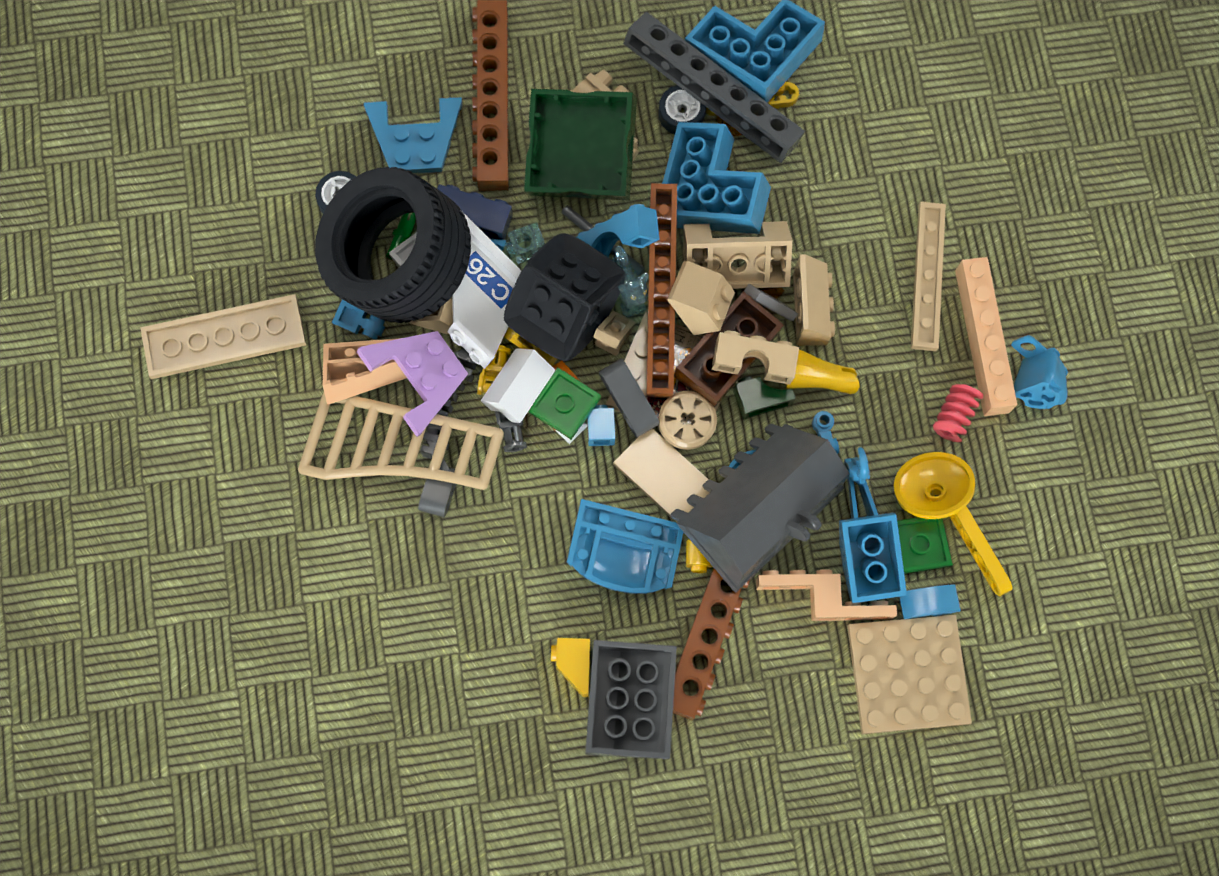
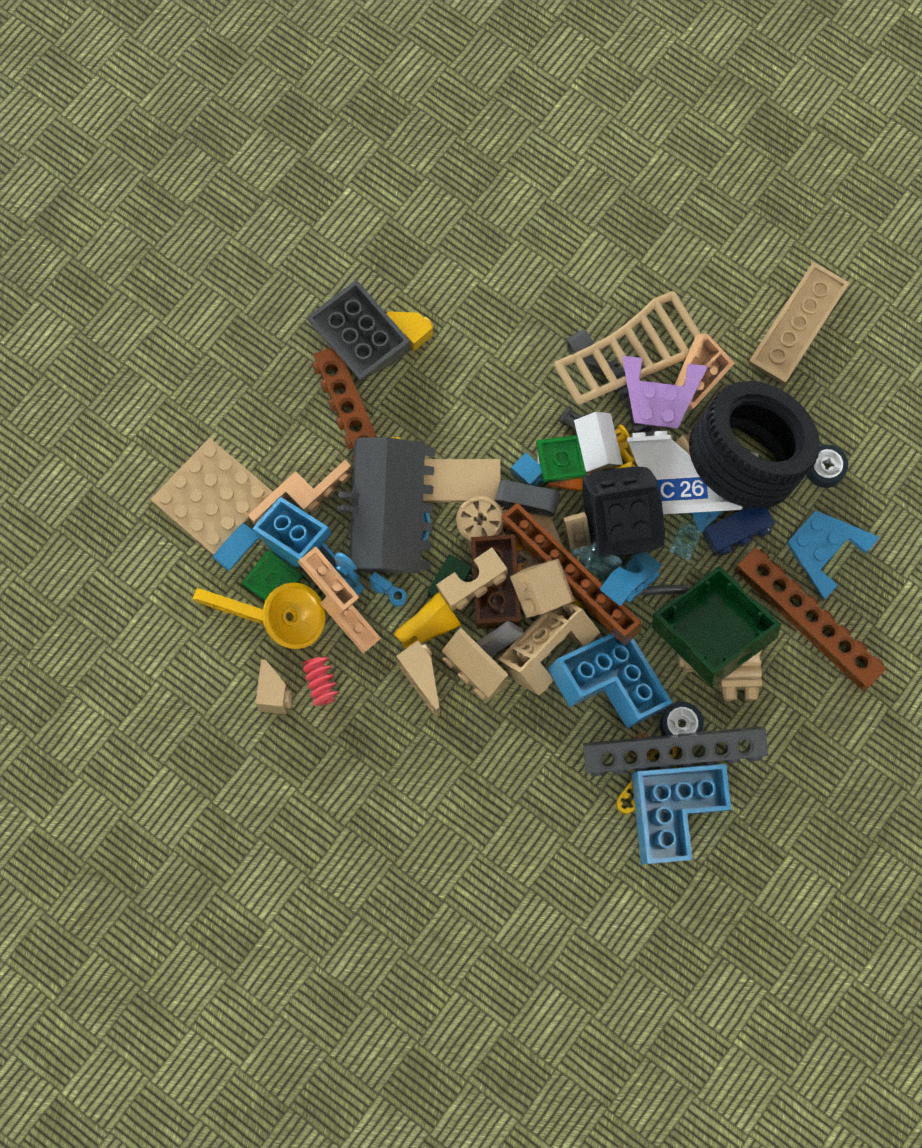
camera: 140 degrees right, 0 degrees up
(624, 548) = (445, 411): dark azure slope -> none
(866, 342) = (417, 667): none -> tan slope
(884, 458) = (339, 599): none -> light nougat bracket
(928, 276) = (419, 758): tan plate -> none
(985, 336) = (346, 748): light nougat brick -> none
(1011, 433) = (272, 691): none -> tan slope
(1041, 376) = (286, 749): dark azure piece -> none

